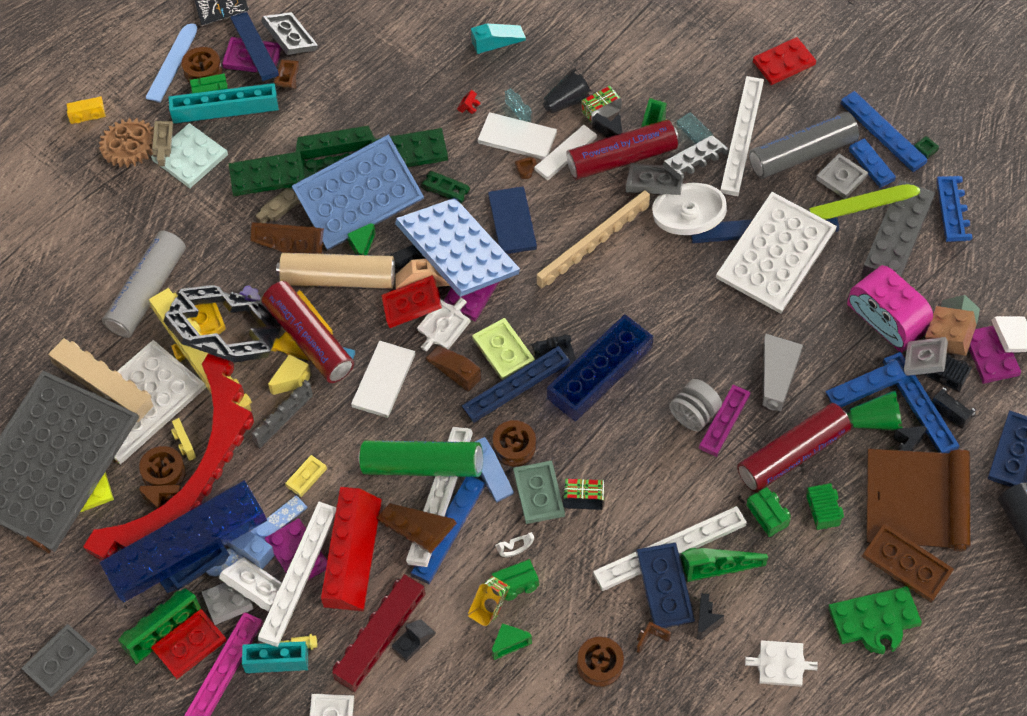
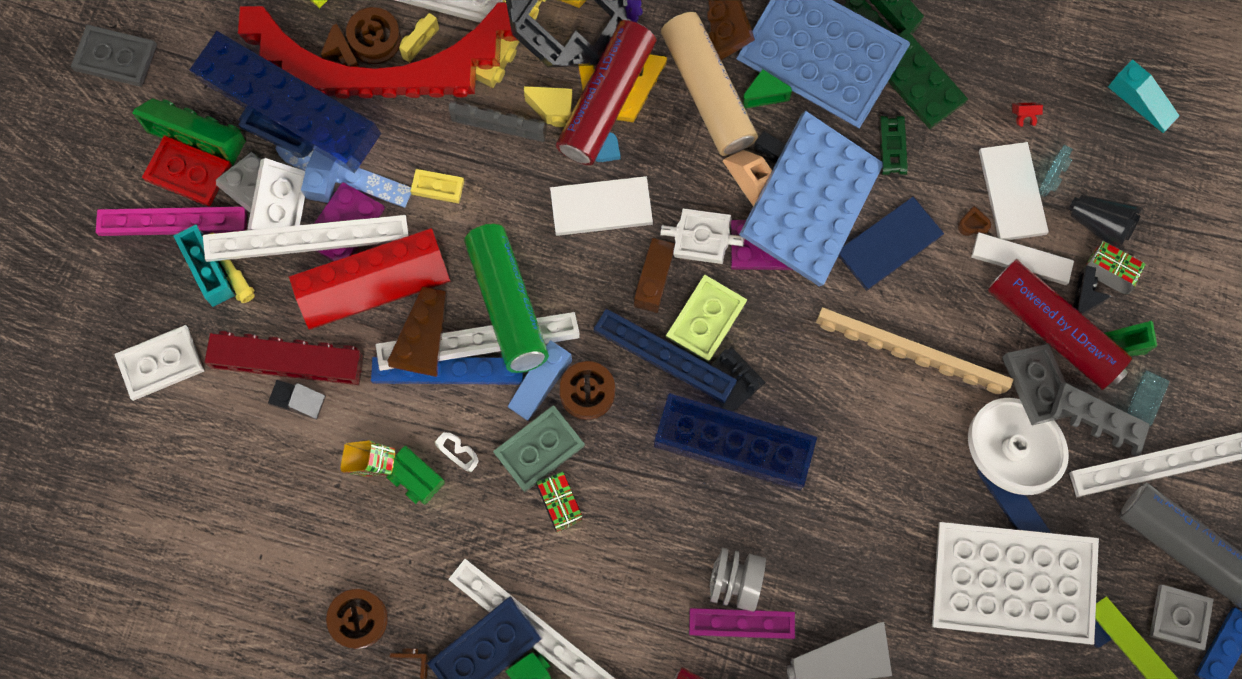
camera: 60 degrees right, 15 degrees up
(411, 301) = (711, 185): red plate -> none
(510, 640) = (337, 502): green slope -> none

